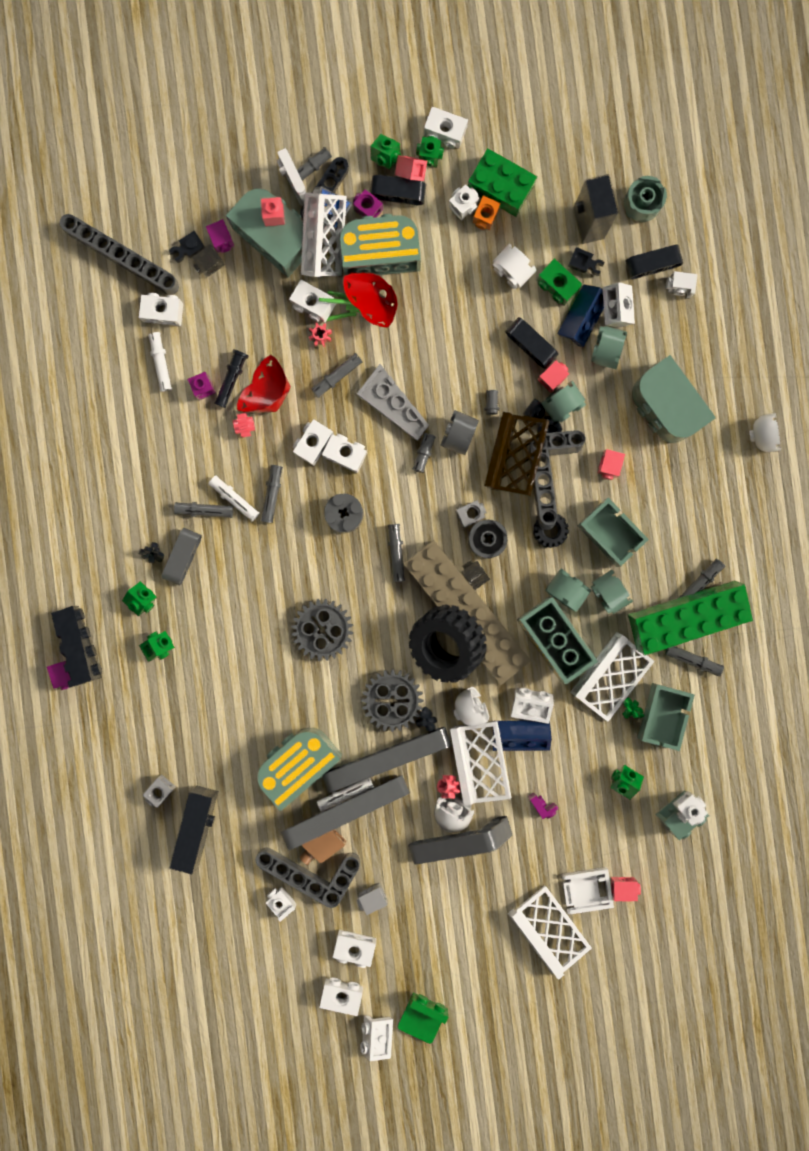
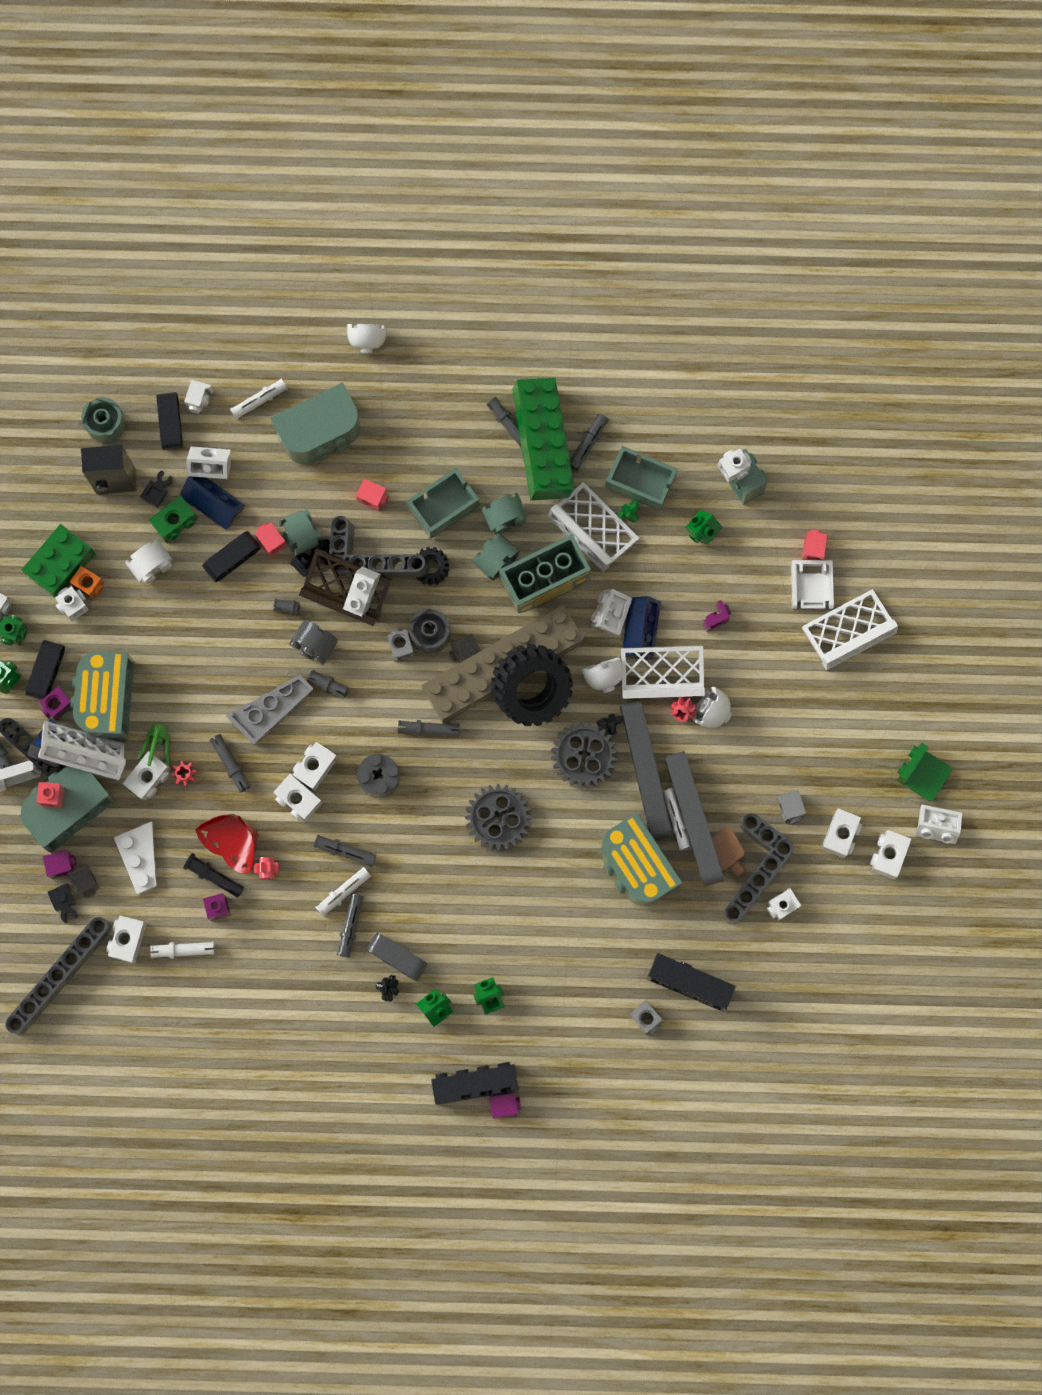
camera: 80 degrees left, 10 degrees down
(239, 307) = (139, 856): none -> white wing
(369, 297) = (156, 716): red piece -> none
(410, 168) = (26, 652): coral brick -> none
(463, 844) = (743, 702): dark grey beam -> none
(513, 469) = (361, 591): none -> white brick
(609, 348) = (250, 477): sand green brick -> none
(688, 341) = (259, 398): none -> white pin

